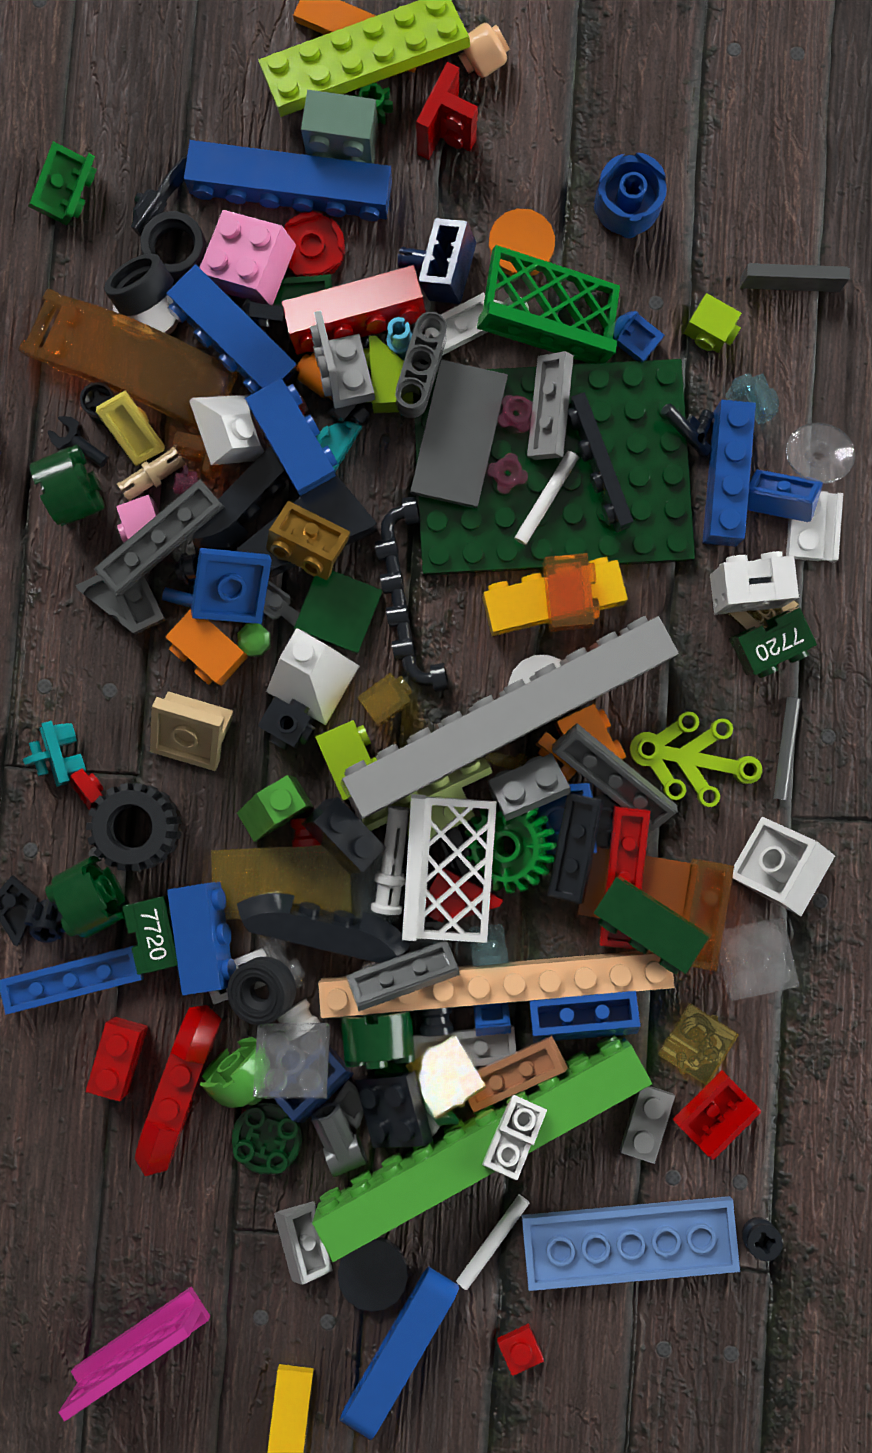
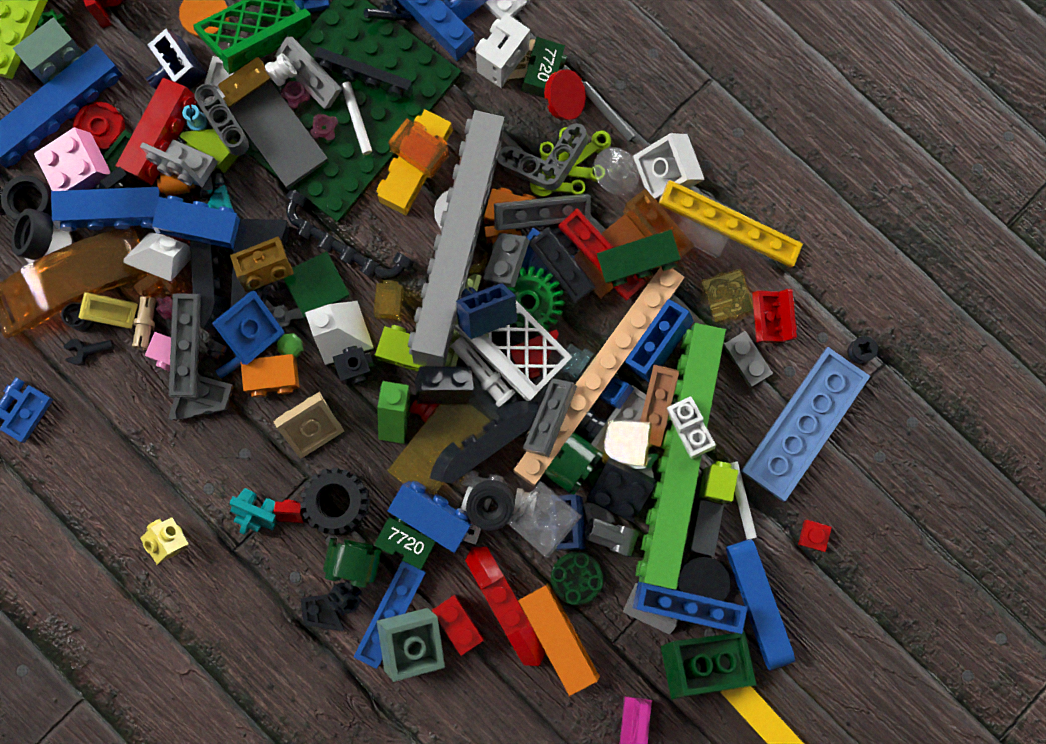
camera: 55 degrees left, 5 degrees down
(54, 1030) = (410, 644): none -> sand green brick
(67, 486) = (108, 372): dark green brick -> none
(189, 1174) = (559, 639): none -> orange brick
(232, 1076) = (527, 563): bright green cylinder -> none
(289, 1352) = (707, 665): none -> dark green slope
(330, 1291) = (689, 607): none -> blue brick
(431, 1228) = (706, 527): none -> dark grey slope
(452, 817) = (486, 310): none -> dark blue brick
(482, 351) = (244, 82): none -> pearl gold bracket
(485, 1208) = (718, 483): none -> lime brick
(526, 377) = (280, 69): none -> white wheel
(674, 743) = (551, 165): none -> dark grey beam
(718, 810) = (611, 176): none -> clear dish
(763, 691) = (565, 94): none -> red tile
(776, 985) = (730, 223): none -> yellow tile

